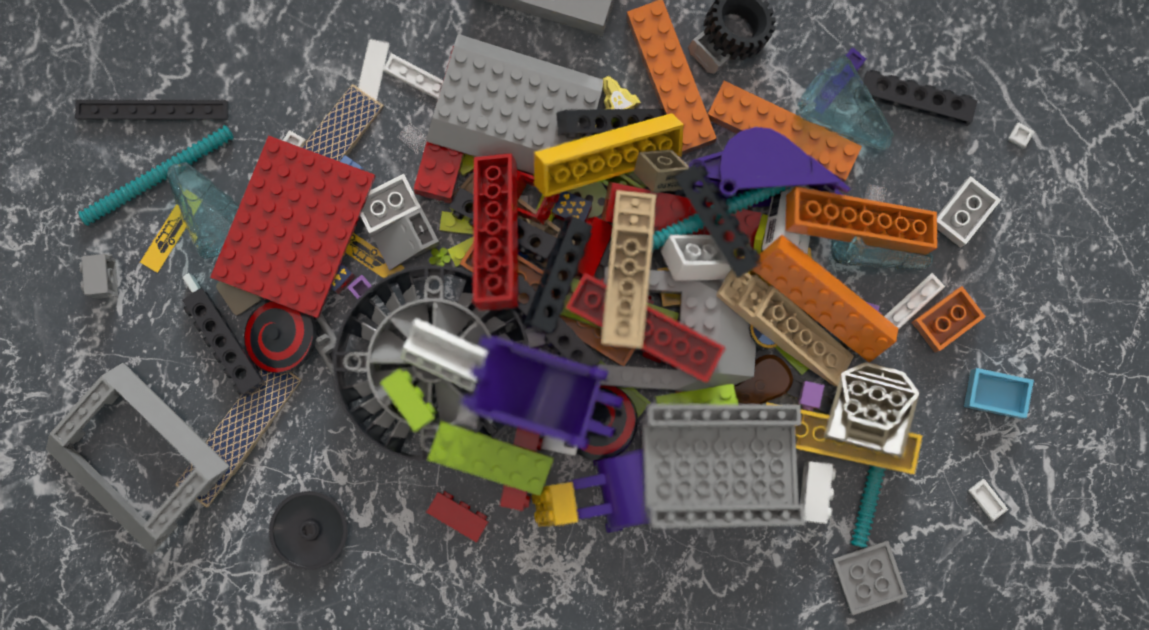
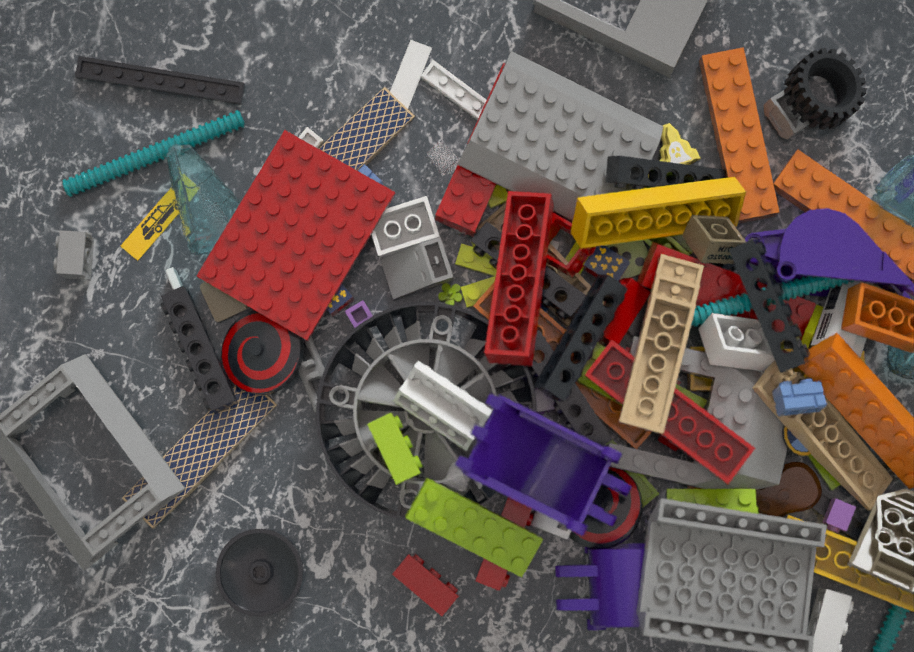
camera: 15 degrees right, 0 degrees up
(369, 256) = (375, 282): yellow sticker -> none
(555, 505) = (536, 591): yellow slope -> none
(757, 297) = (799, 398): none -> medium blue brick

